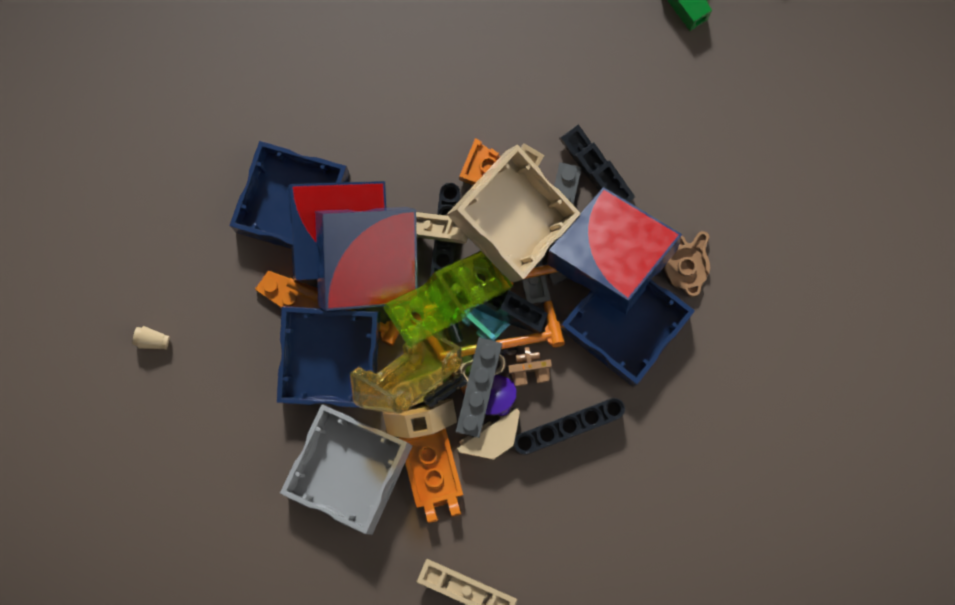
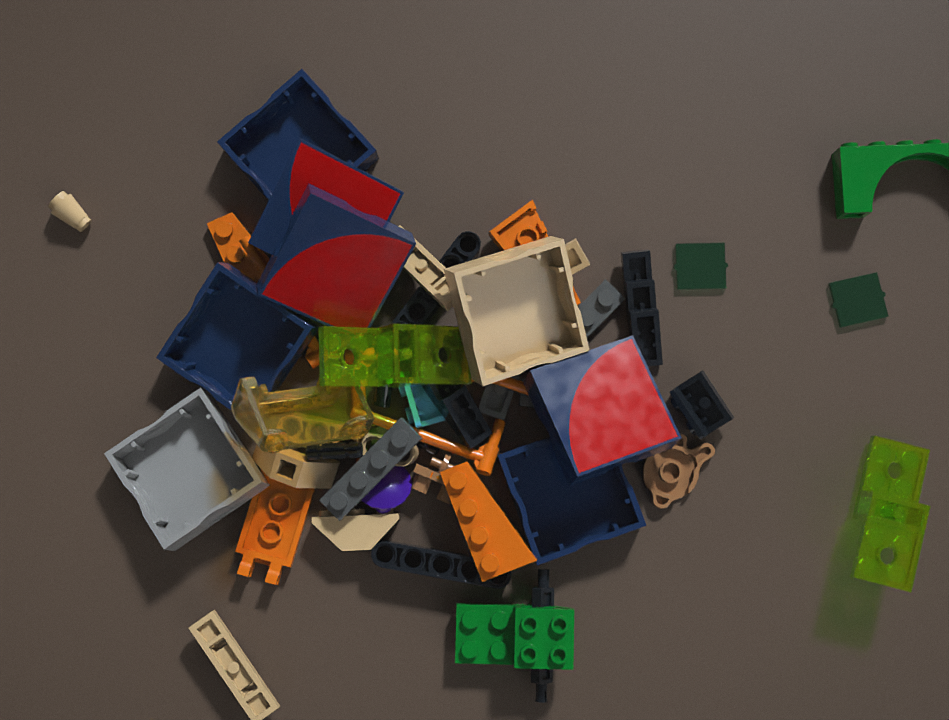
camera: 25 degrees right, 5 degrees up
(588, 381) = (487, 530): none -> orange wing
(618, 116) = (700, 266): none -> clear green piece
(655, 442) = (519, 635): none -> green piece
(679, 208) = (700, 405): none -> black bracket
(739, 75) = (858, 300): none -> clear green piece
(854, 203) = (890, 513): none -> clear neon green bracket

